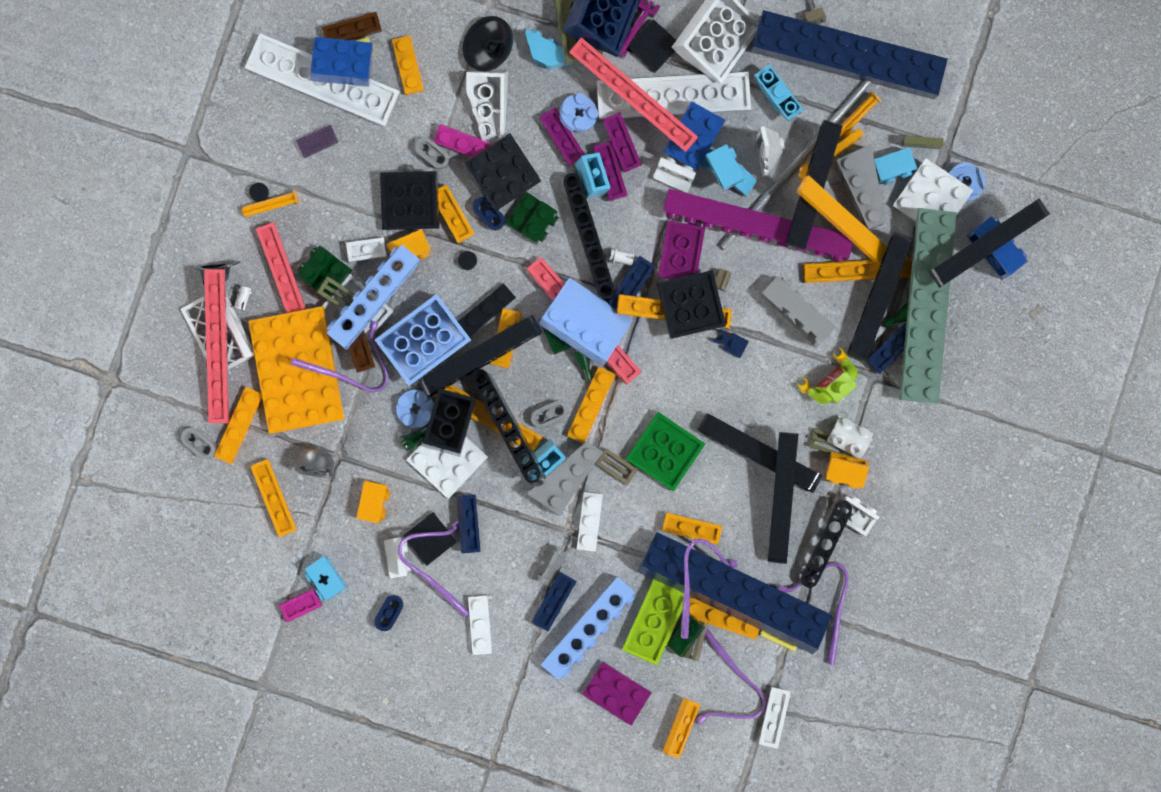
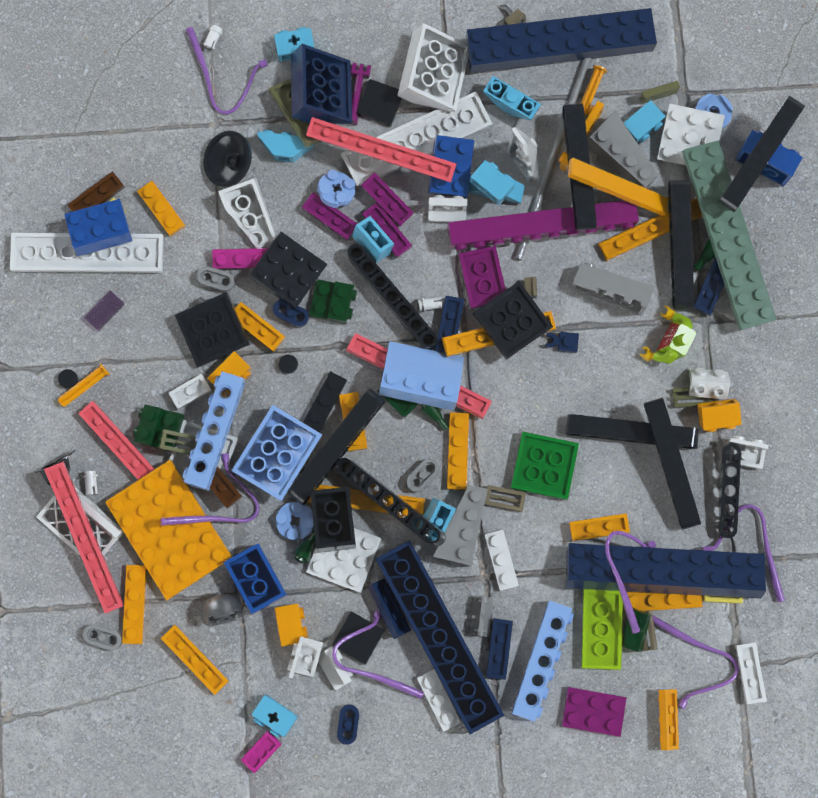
camera: 25 degrees left, 5 degrees down
(357, 447) = (255, 578): none -> blue brick
(374, 537) = (306, 657): none -> white bracket
(503, 568) = (440, 637): none -> dark blue brick

